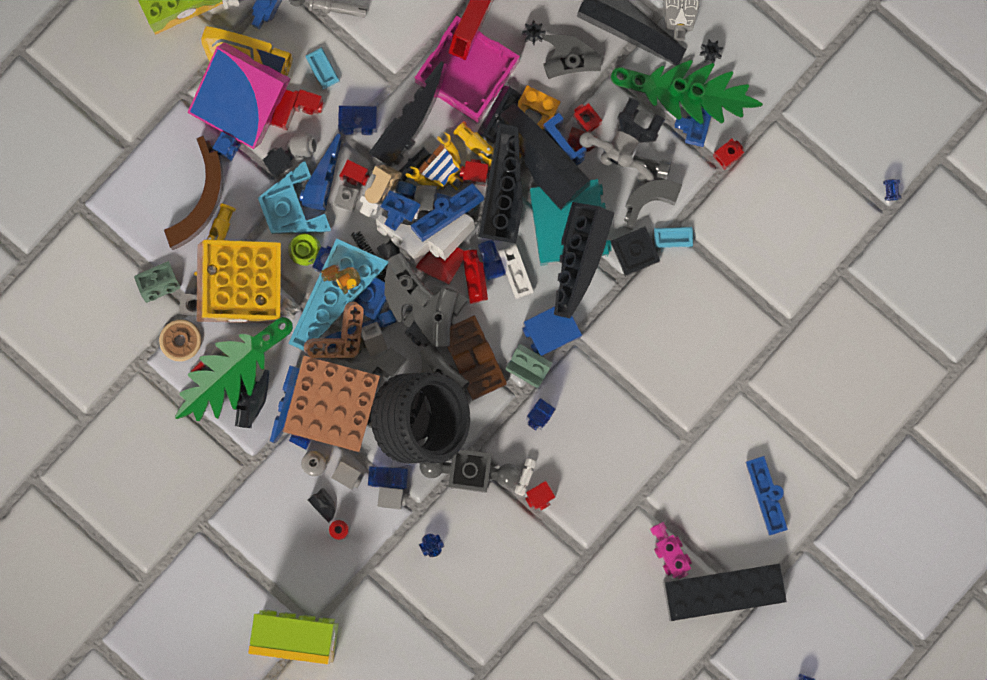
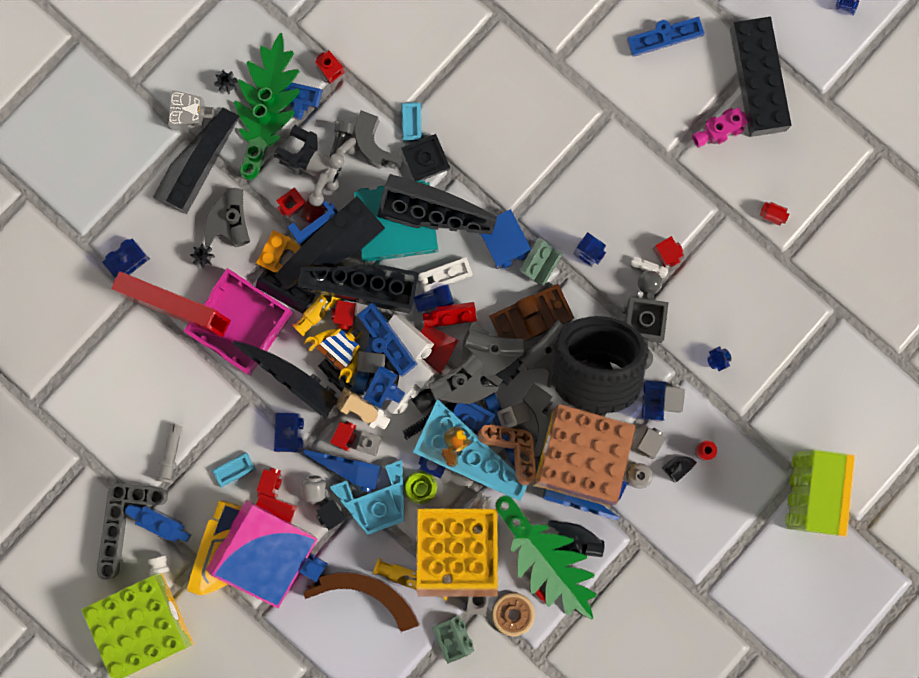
camera: 85 degrees left, 0 degrees up
(581, 604) = (774, 213): none -> red brick

